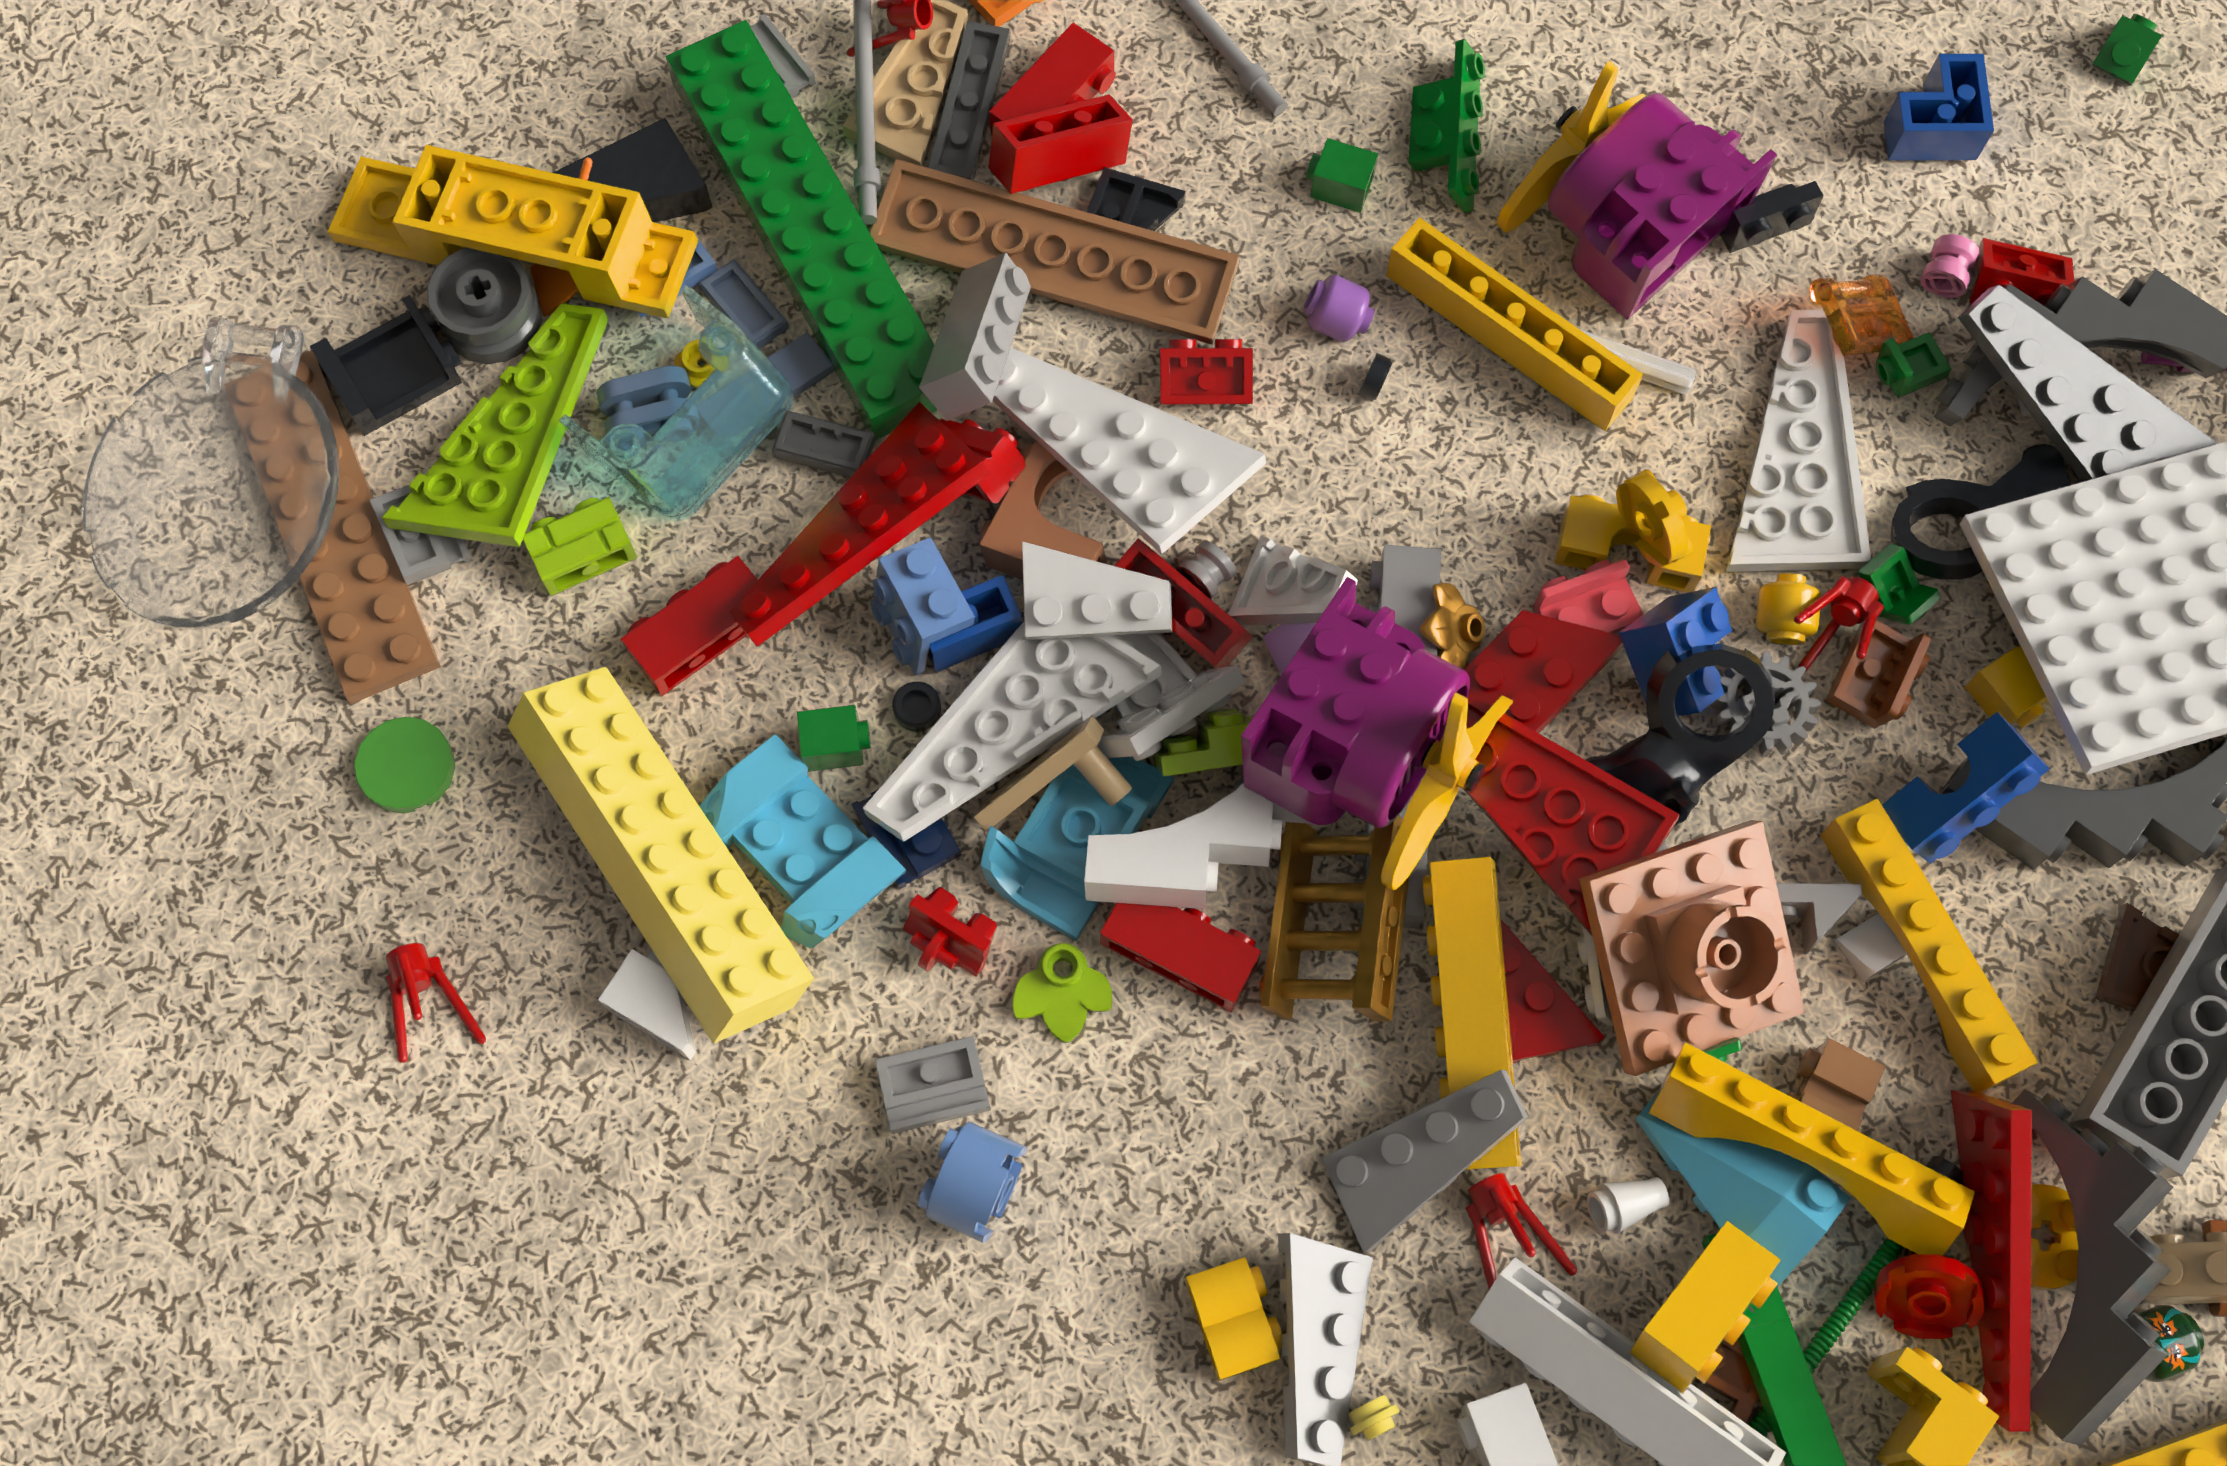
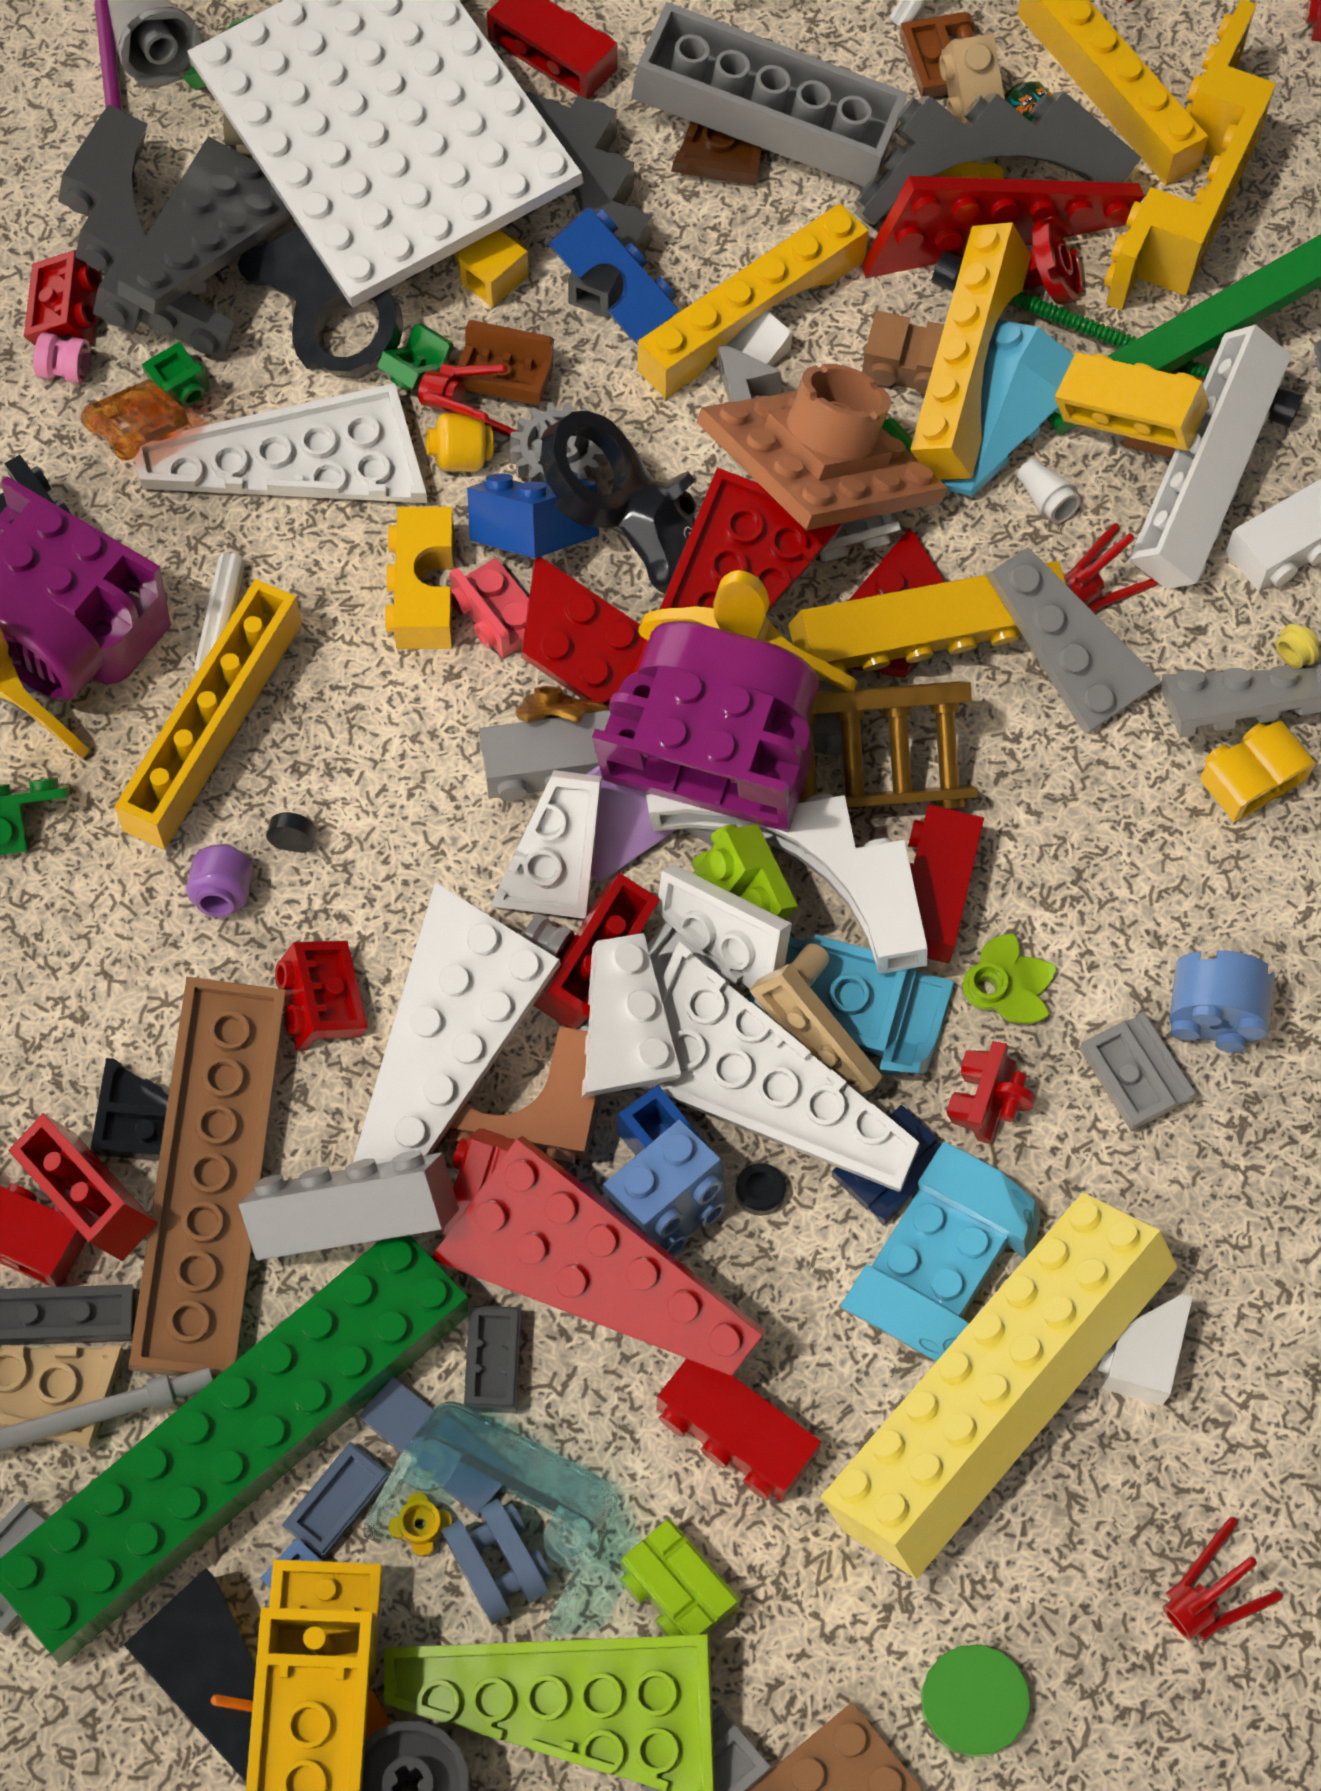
camera: 105 degrees left, 5 degrees down
(832, 737) = (823, 1254): green brick -> none
(1342, 174) = (57, 907): green brick -> none
(1656, 517) = (420, 535): yellow plate -> none

